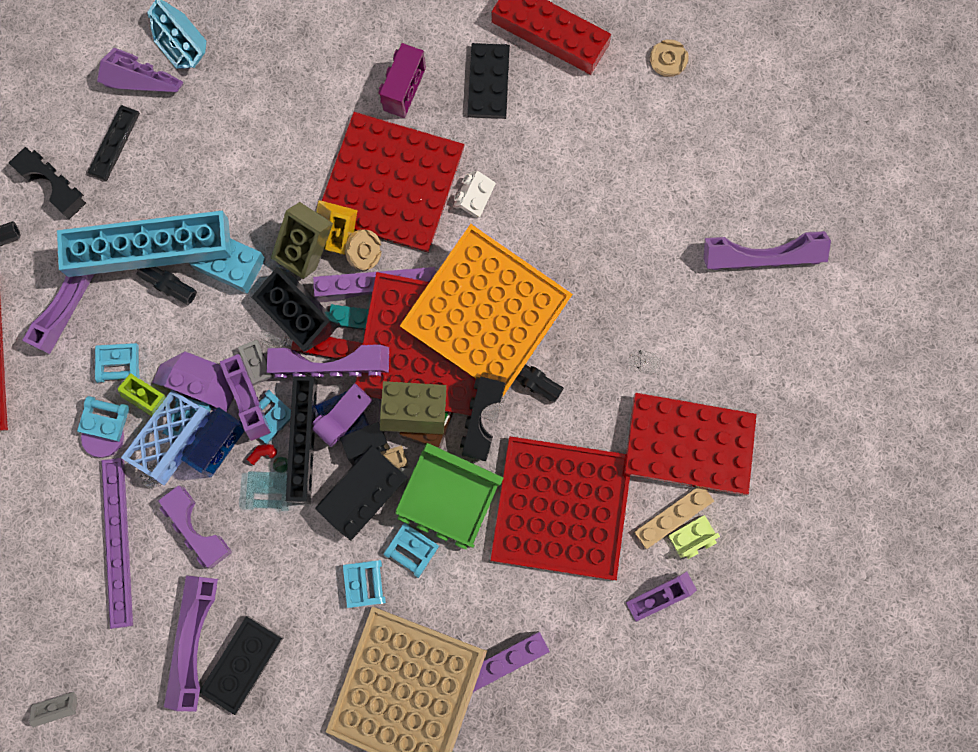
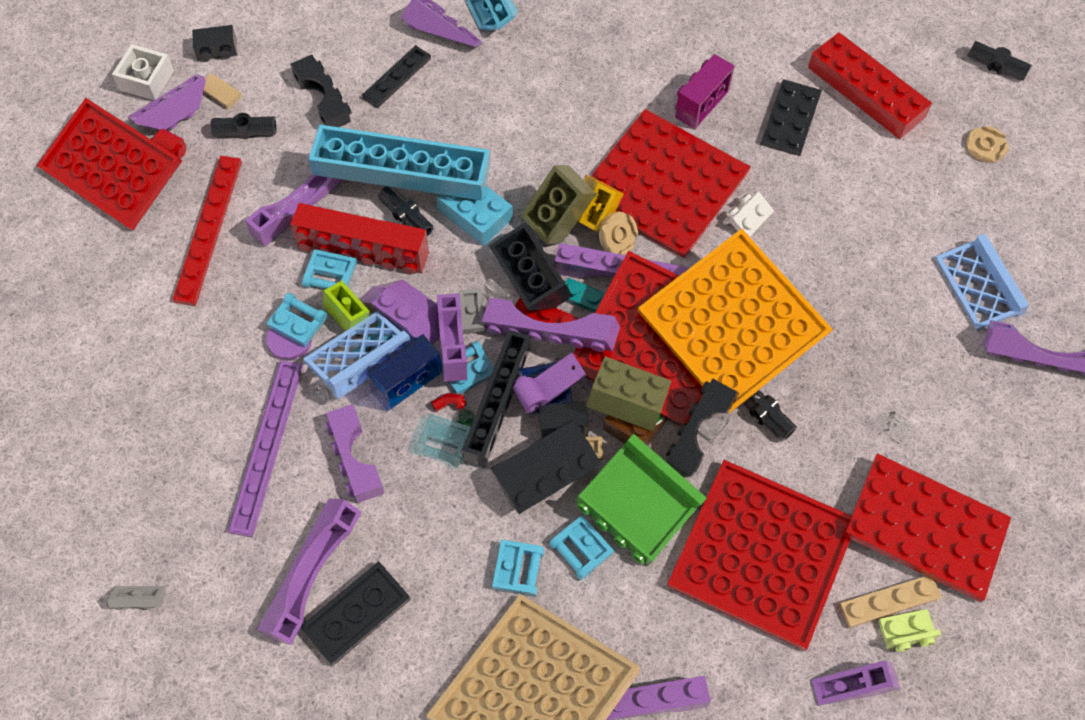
camera: 15 degrees right, 15 degrees down
(132, 325) = (361, 238): none -> red brick
(705, 192) = (1000, 279): none -> light blue fence

